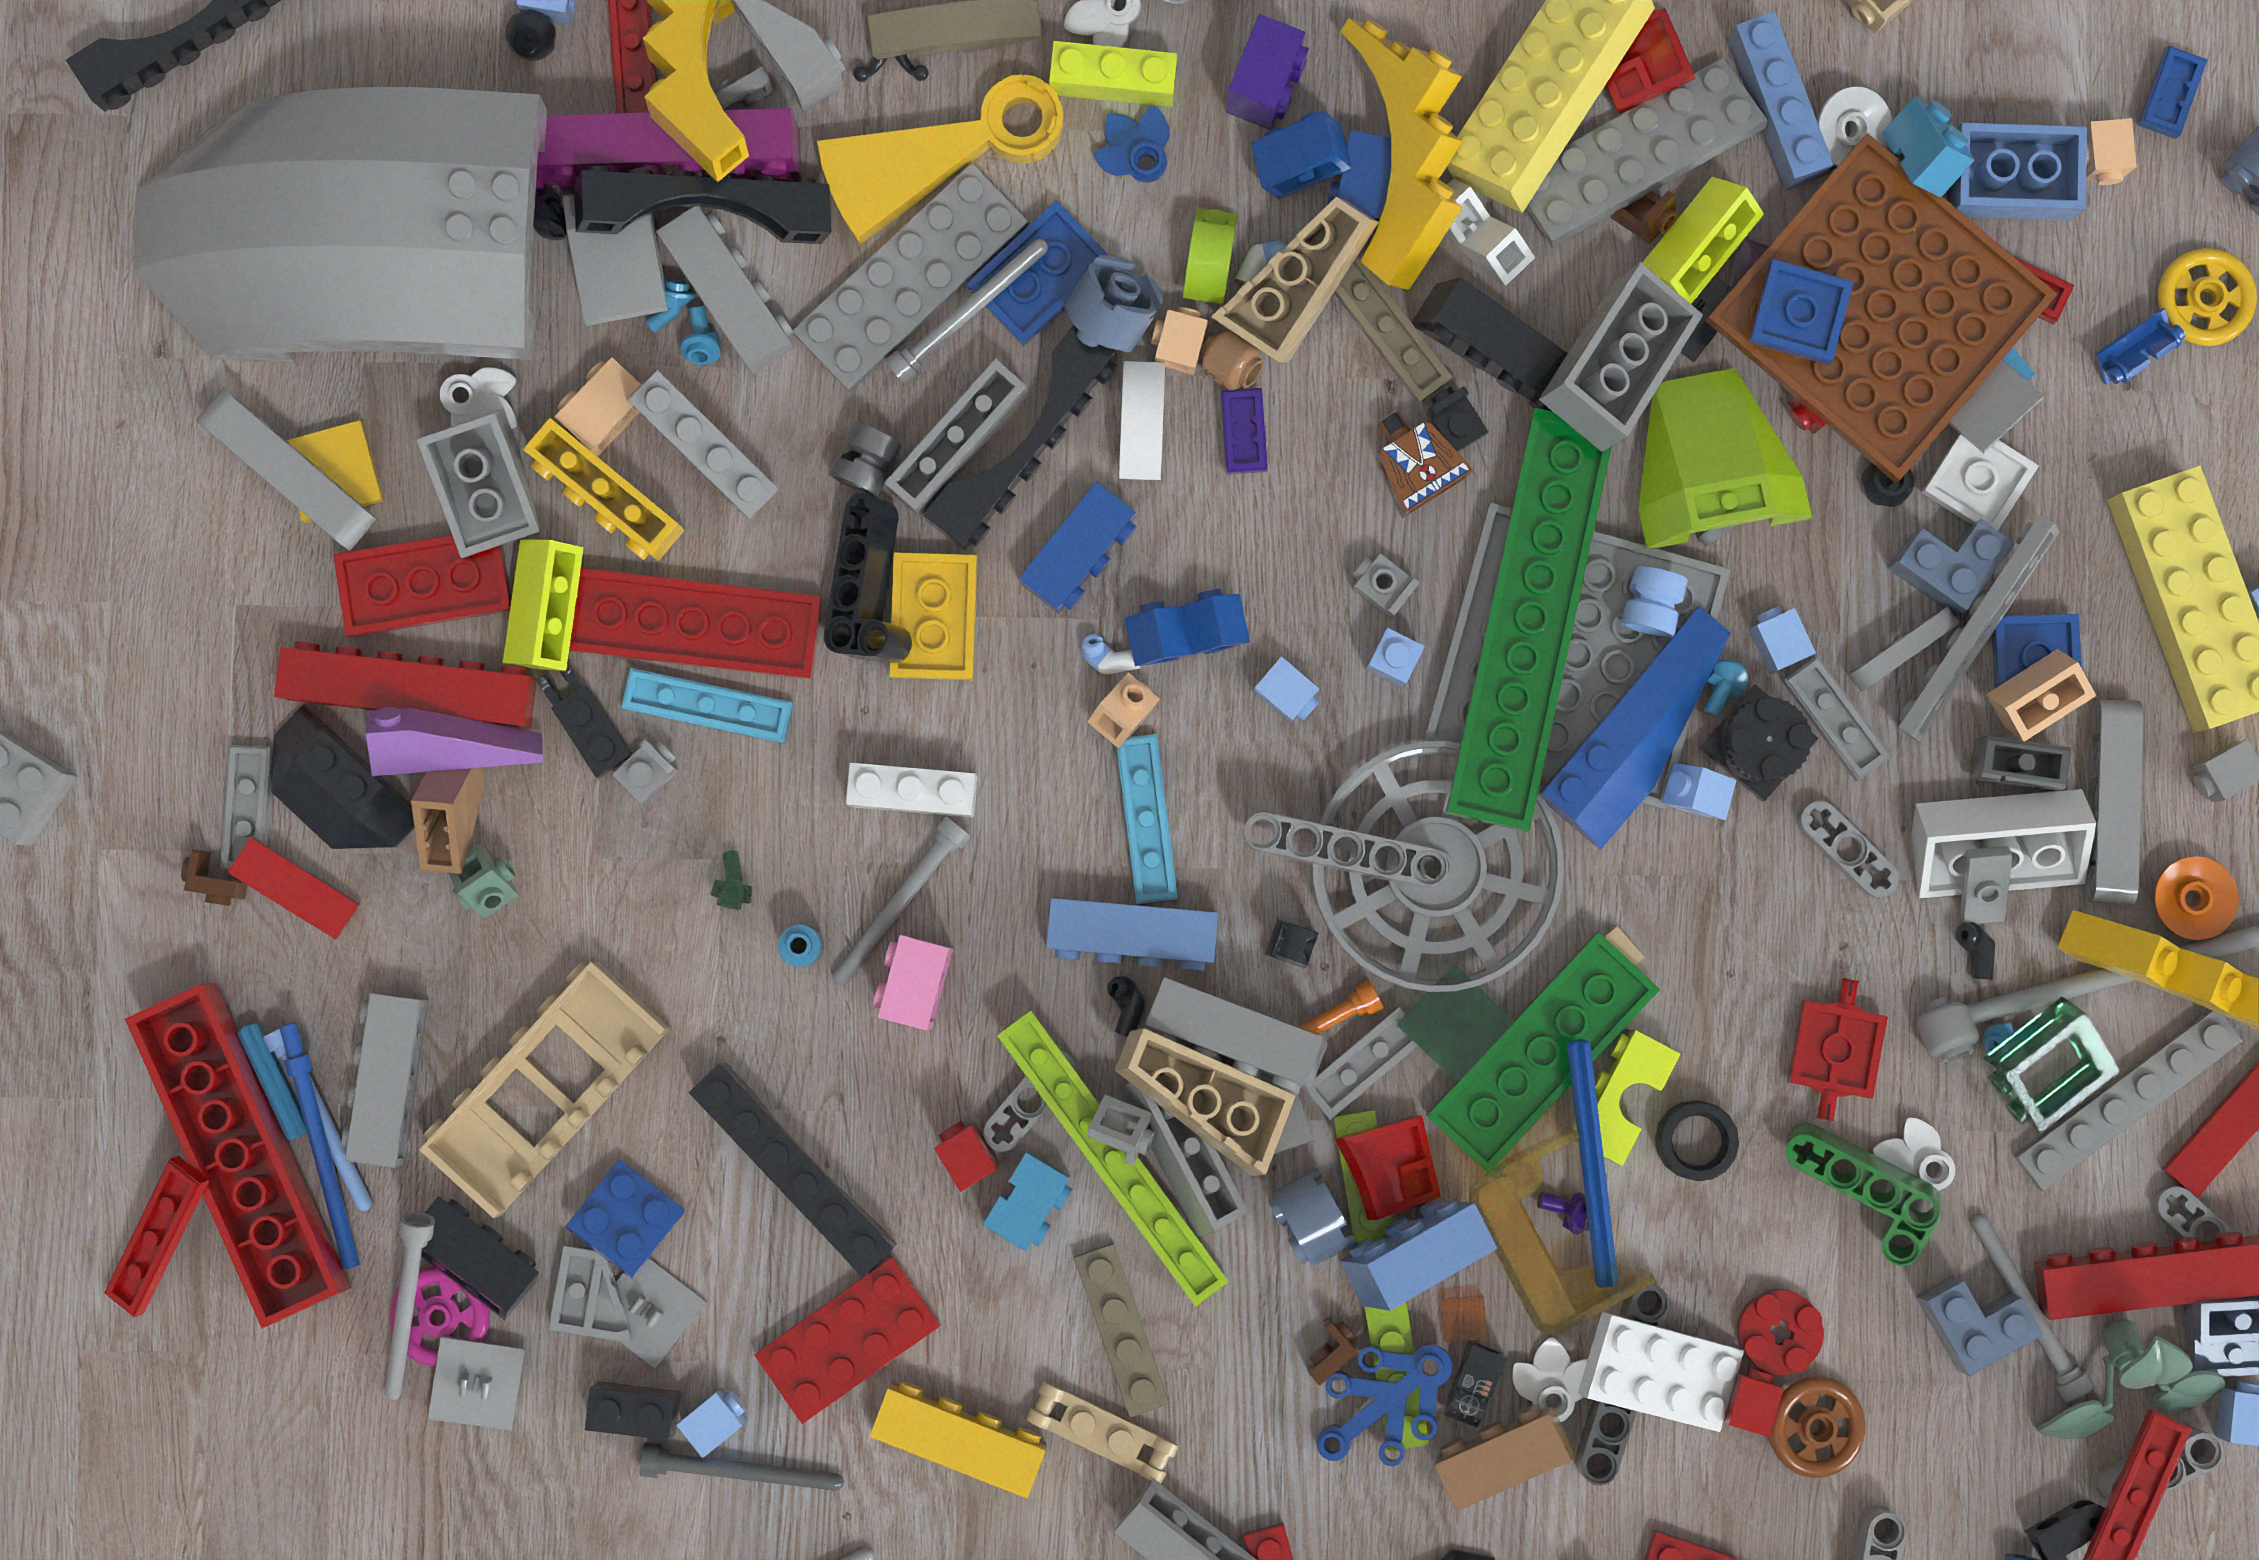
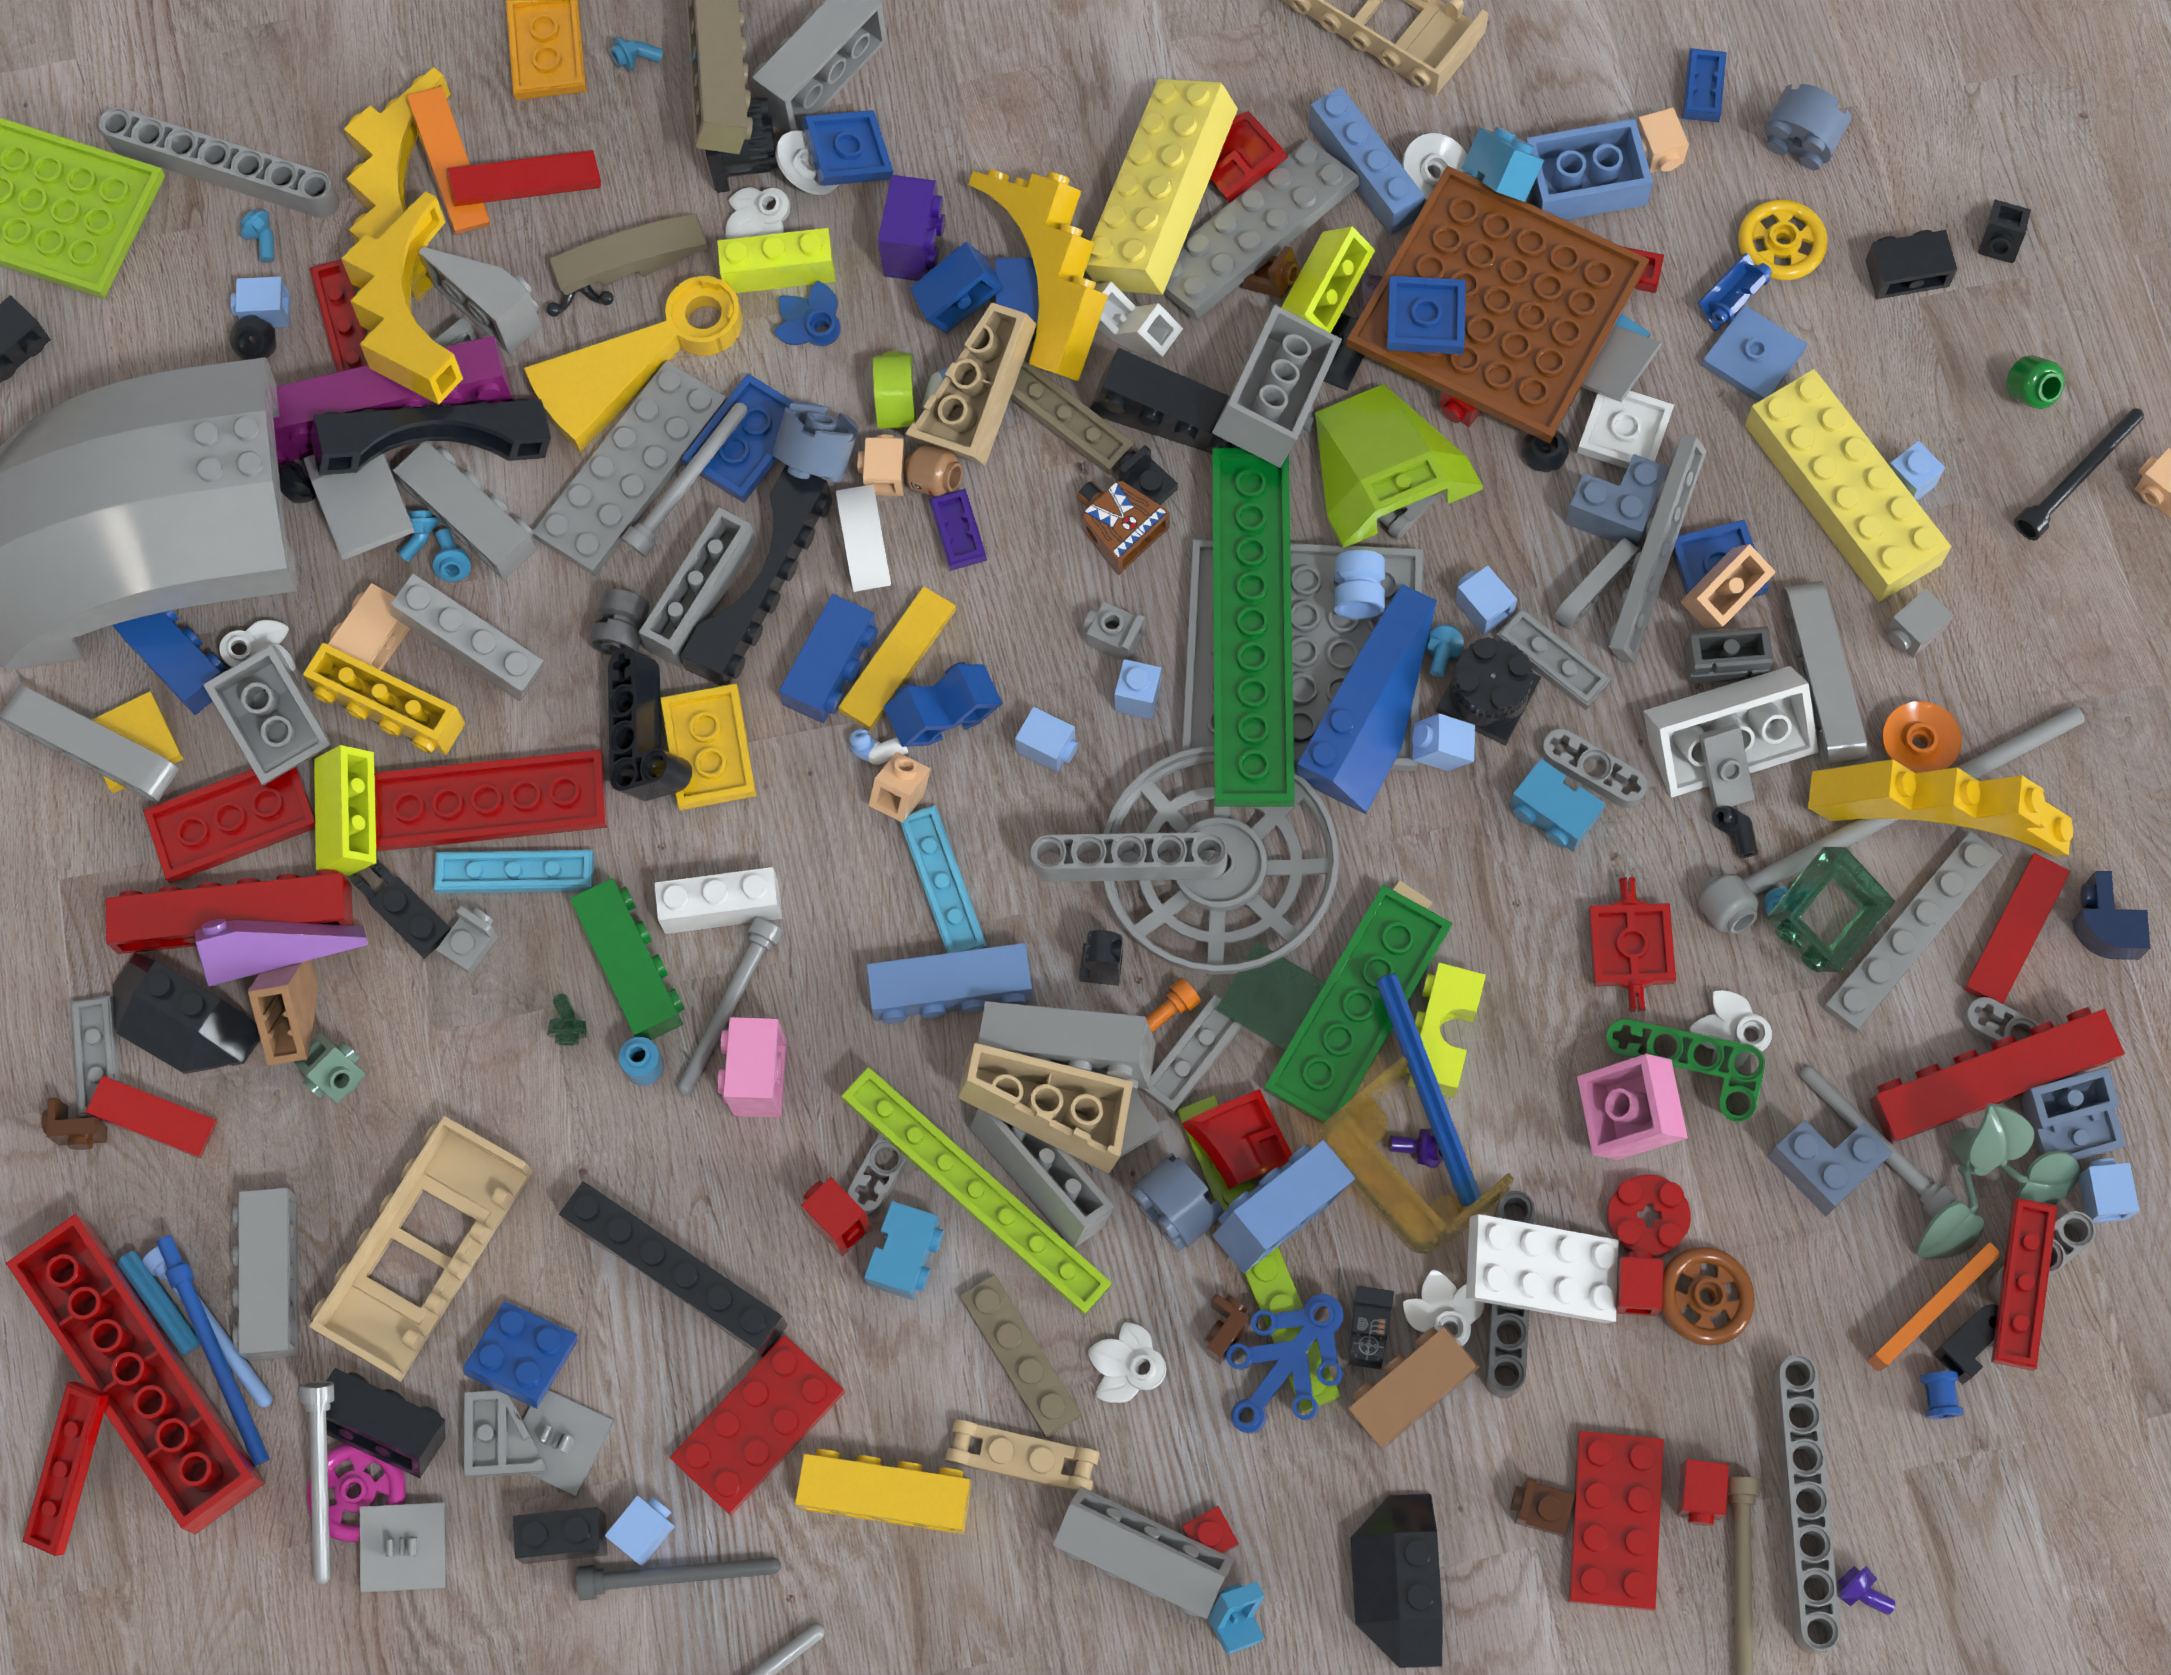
camera: 10 degrees left, 15 degrees down
(394, 396) = (173, 656): none -> blue brick
(806, 832) = (626, 960): none -> green brick
(1122, 1127) = (978, 1152): light grey bracket -> none
(1129, 1001) = (958, 1045): black arm -> none
(1150, 561) = (897, 658): none -> yellow tile
(1219, 1360) = (1121, 1362): none -> white plate
(1464, 1318) = (1345, 1271): clear orange tile -> none
(1728, 1148) = (1536, 1028): black tyre -> none
(1793, 1228) = (1632, 1107): none -> bright pink brick
(1797, 887) = (1555, 807): none -> dark azure brick
(2039, 1491) = (1934, 1307): none -> orange tile
(2140, 424) = (1754, 354): none -> medium blue plate

